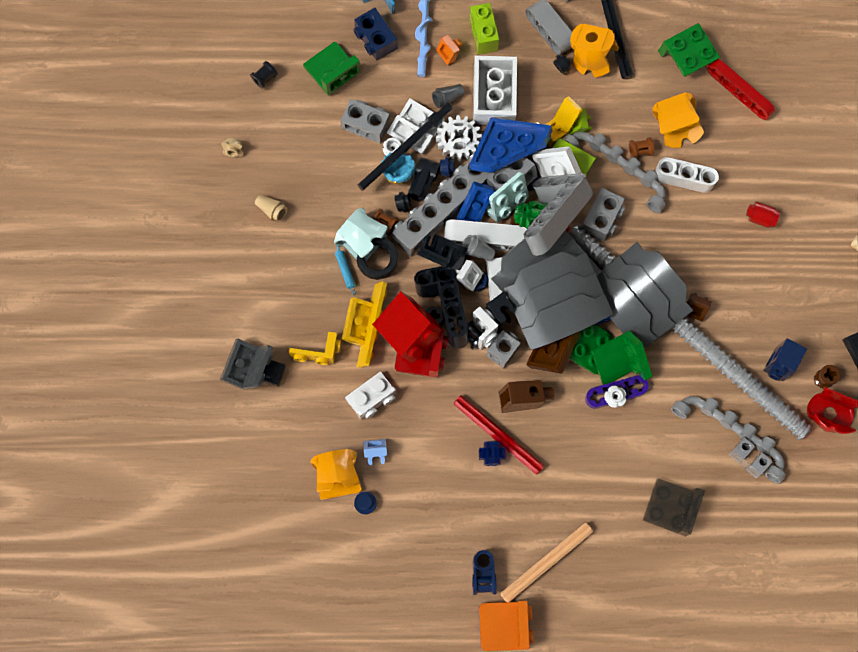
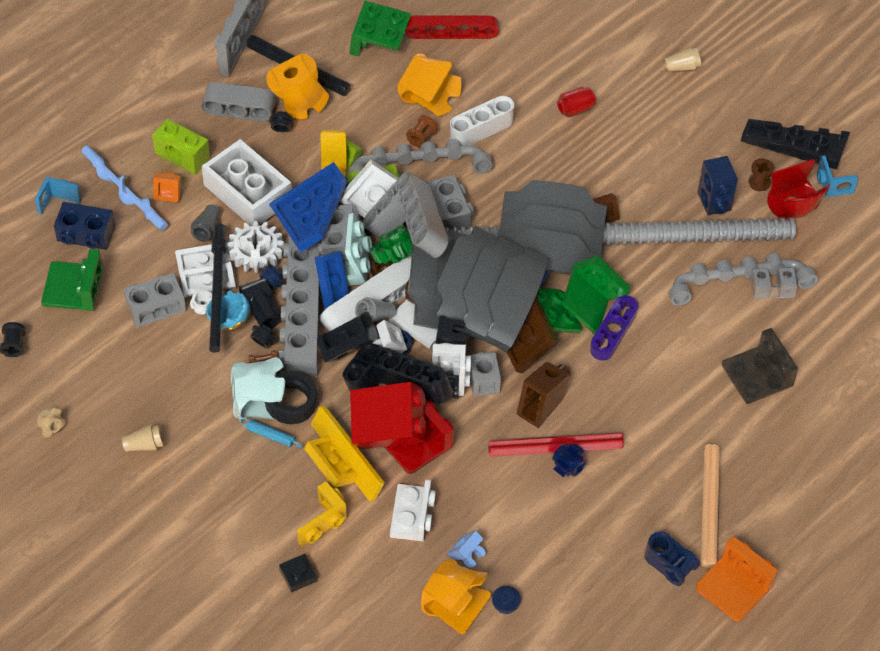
camera: 45 degrees left, 20 degrees down
(246, 365) = (275, 580): dark grey bracket -> none
(609, 396) = (617, 332): white plate -> none

